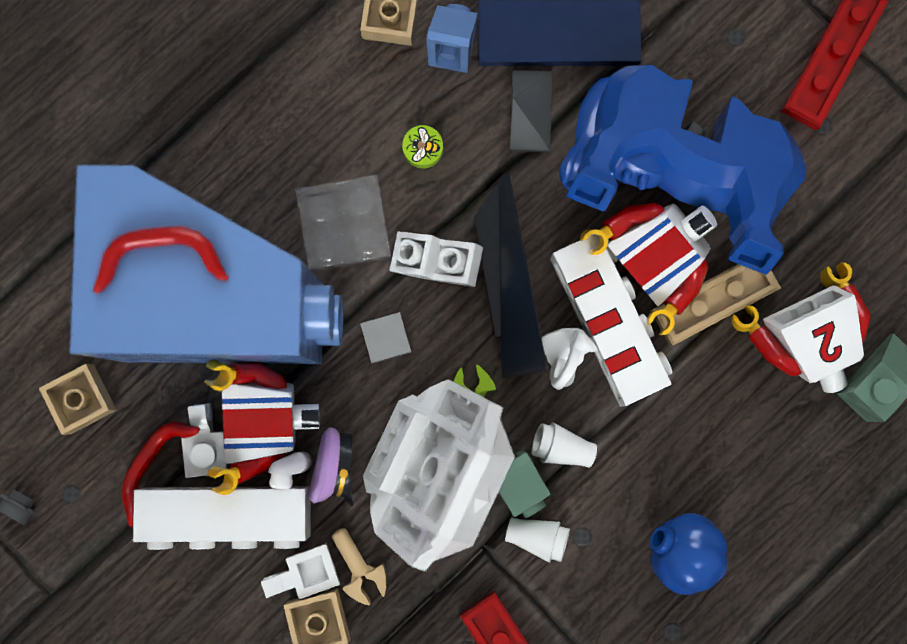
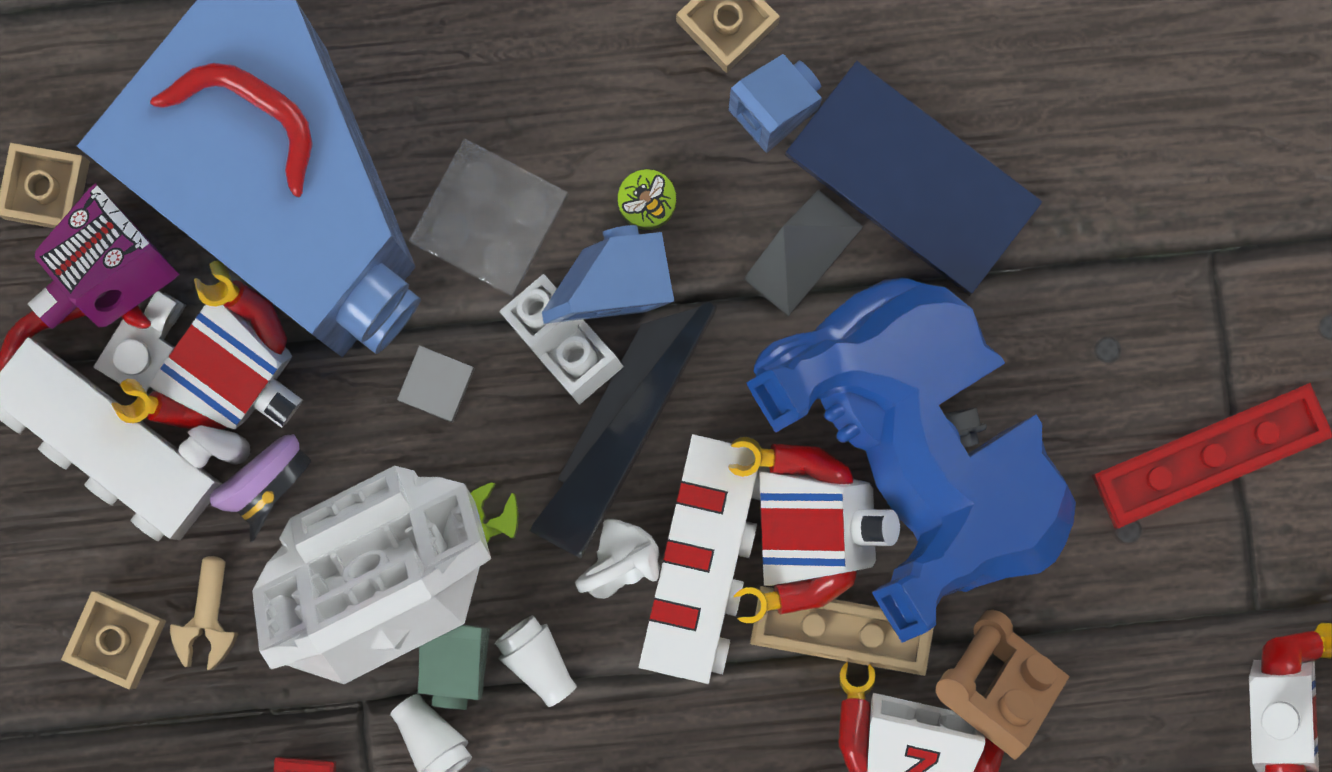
camera: 40 degrees right, 0 degrees up
(142, 417) = (97, 264): none -> torso
(307, 573) = (145, 578): white plate -> none
(440, 201) = (614, 278): none -> medium blue slope
(843, 256) = (1017, 696): none -> medium nougat plate

